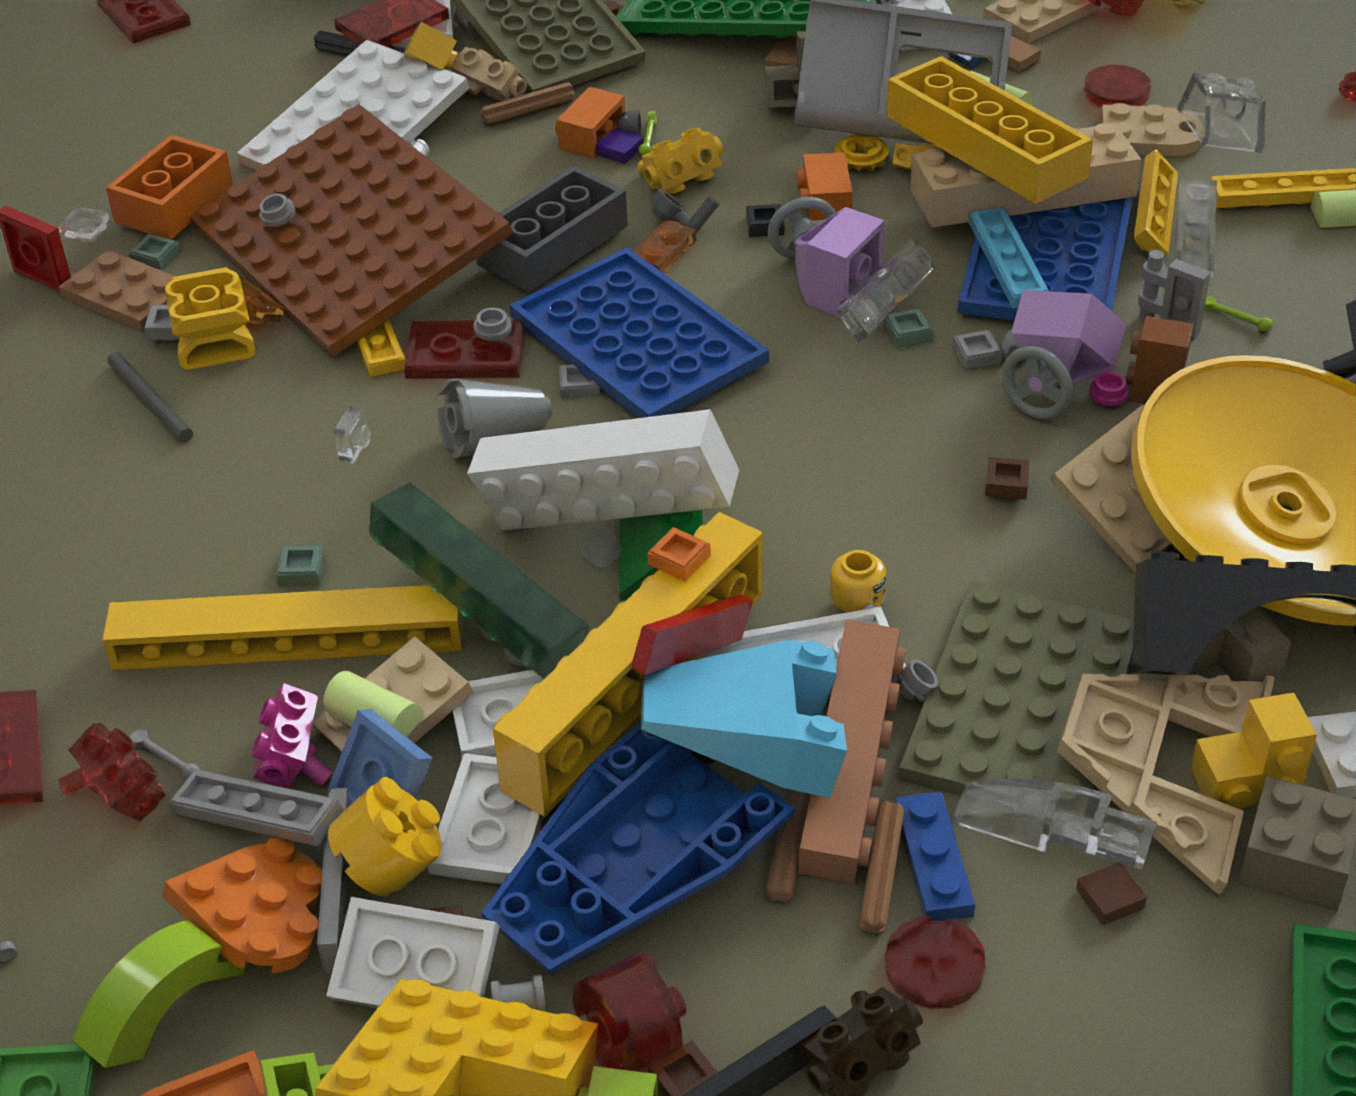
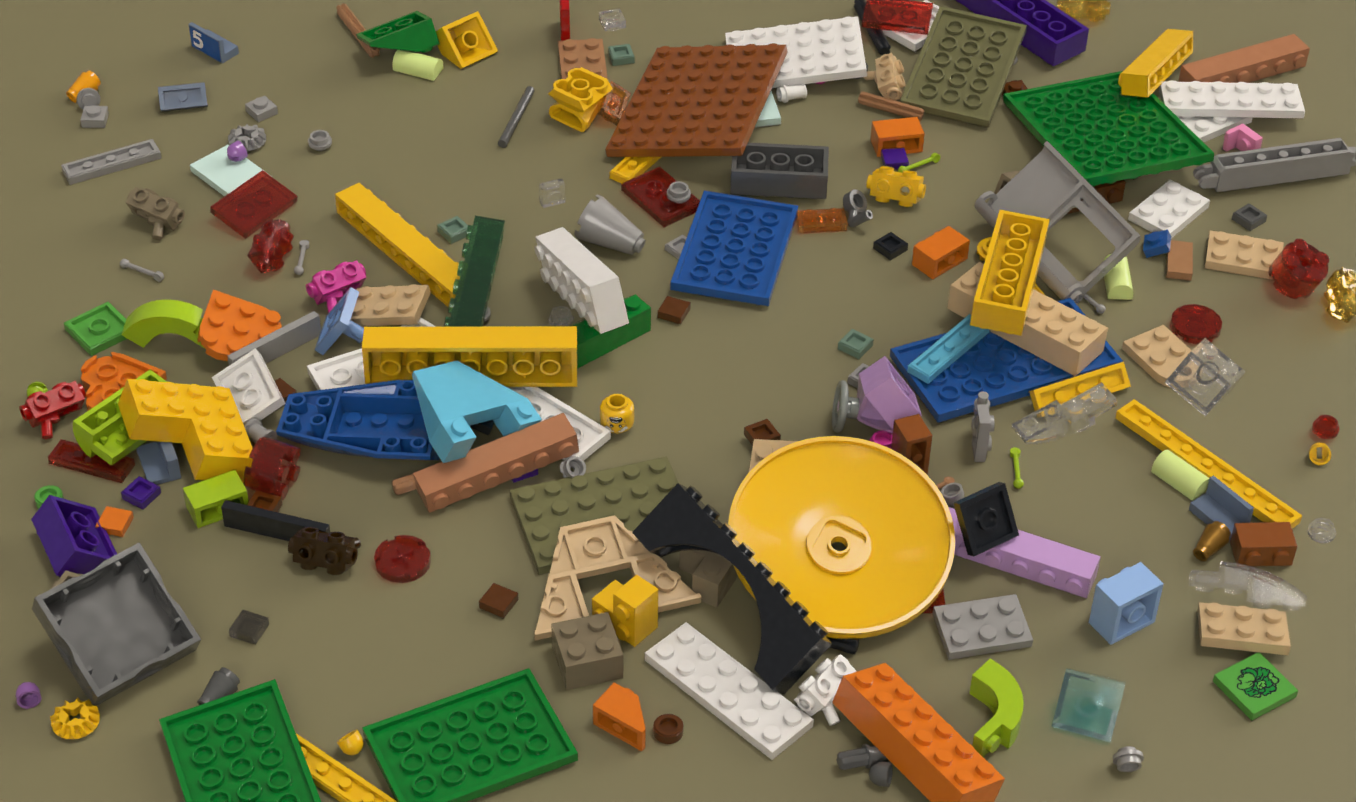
camera: 50 degrees right, 0 degrees up
(169, 186) = (664, 25): orange brick -> none
(256, 807) = (288, 296): light grey tile -> none
(276, 210) = (674, 69): light grey plate -> none
(351, 693) = (371, 294): yellowish green brick -> none
(386, 838) = (299, 341): yellow brick -> none
(431, 47) = (873, 41): yellow brick -> none
(630, 122) = (916, 152): dark grey hinge -> none
(679, 554) = (529, 326): orange tile -> none
(691, 633) = (497, 363): red tile -> none
(829, 252) = (868, 282): lavender piece -> none
(881, 868) = (439, 512): medium nougat axle -> none
(884, 289) = (864, 315): clear slope -> none
(935, 858) = (467, 529): blue plate -> none
(1047, 811) = (519, 557): clear slope -> none

